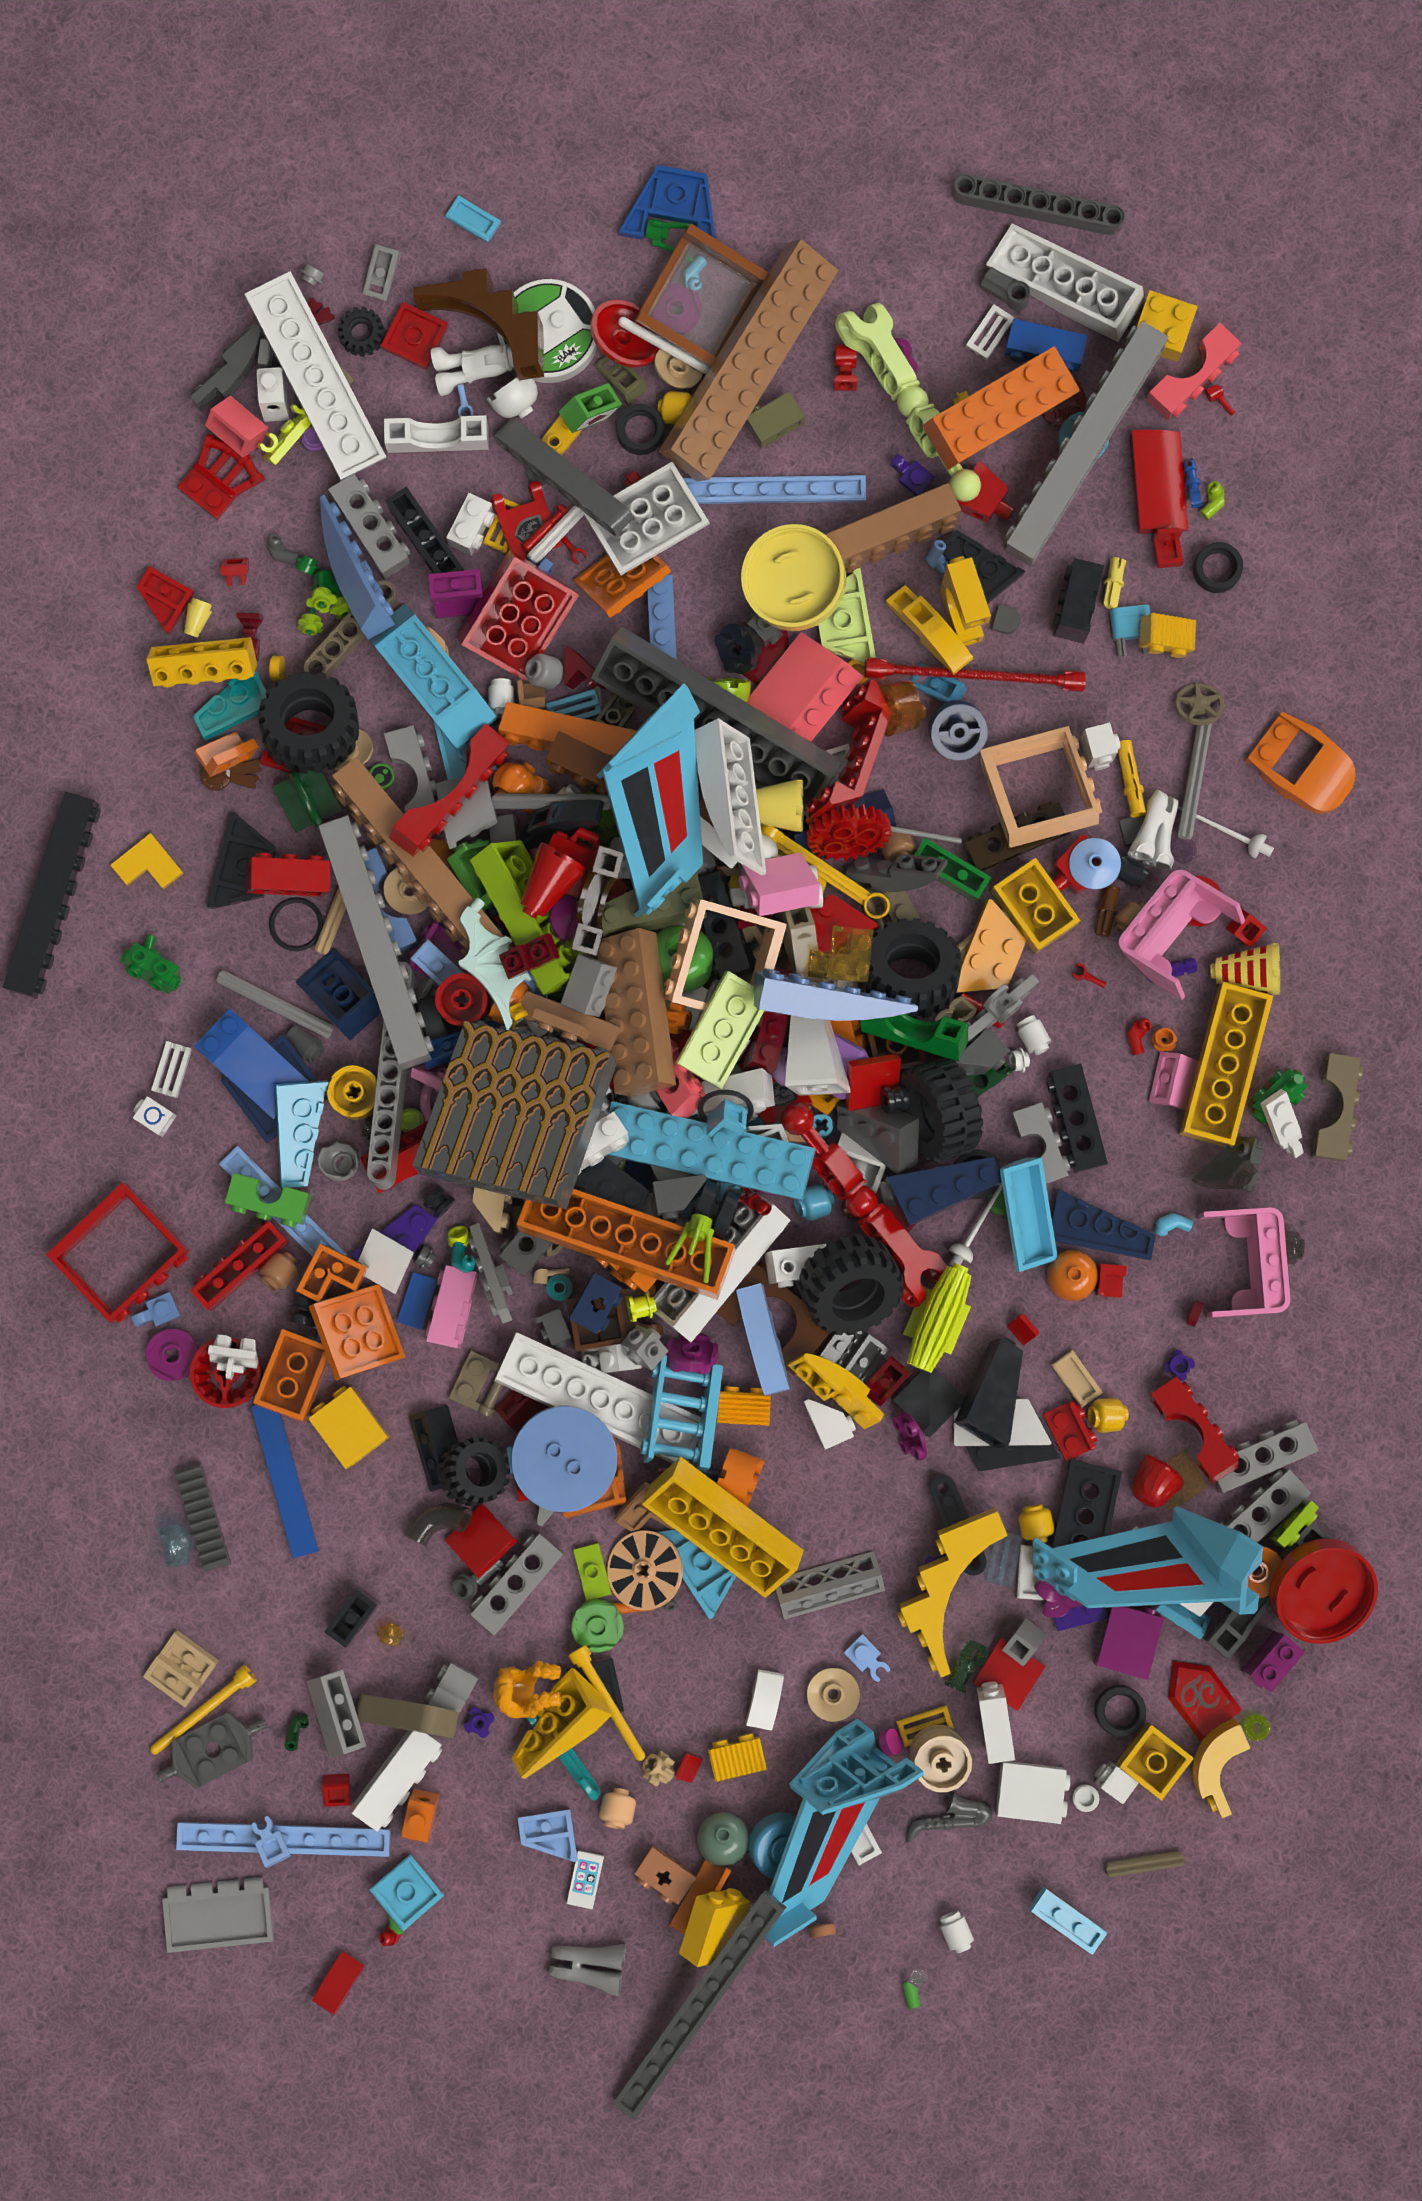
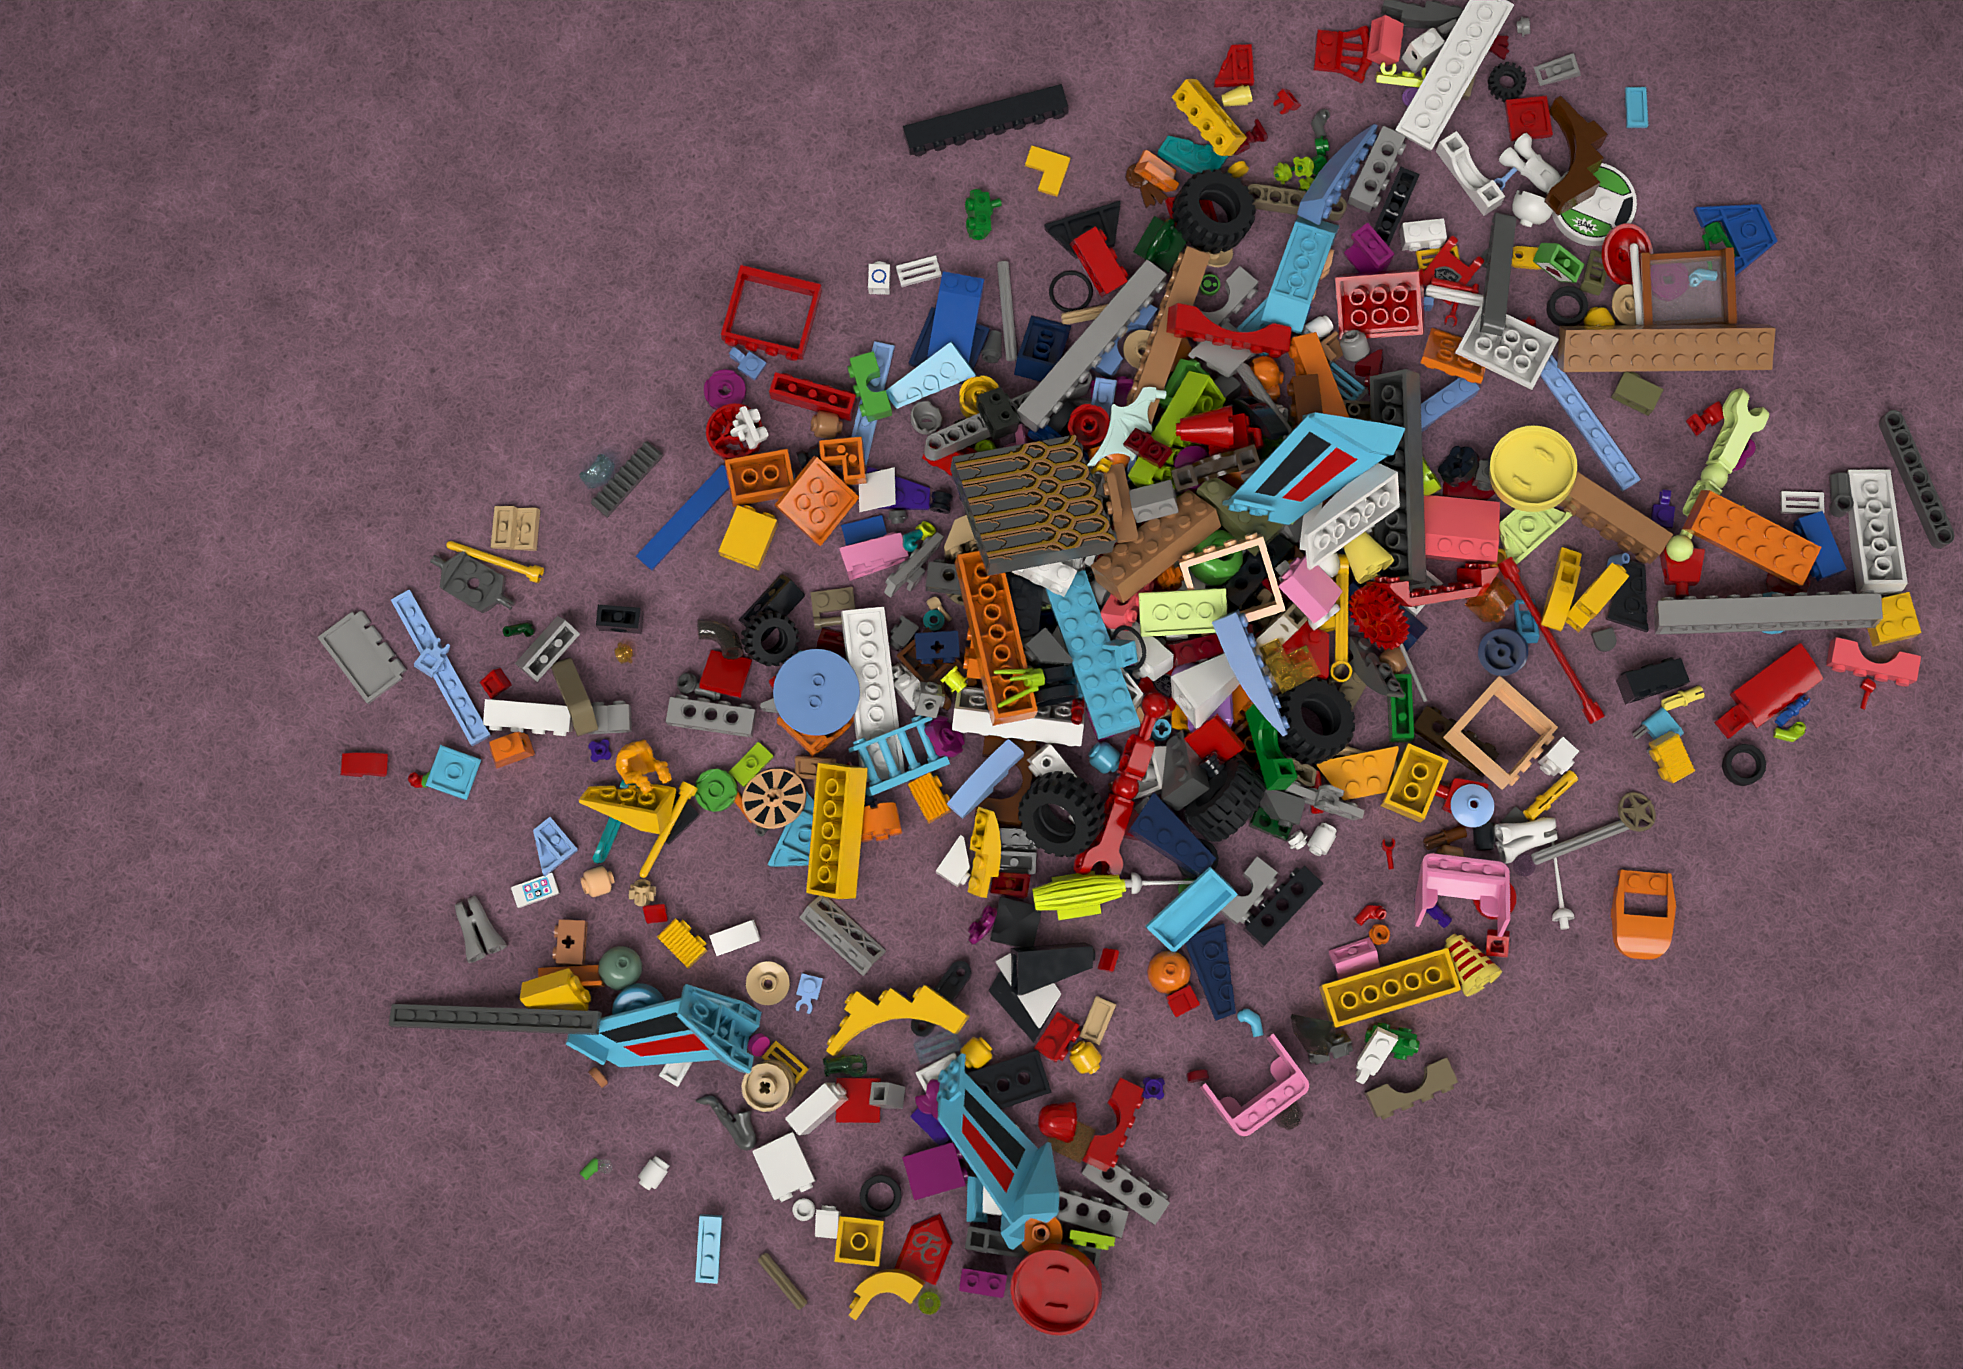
camera: 60 degrees right, 5 degrees down
(388, 1086) = (997, 413): none -> pearl dark grey brick

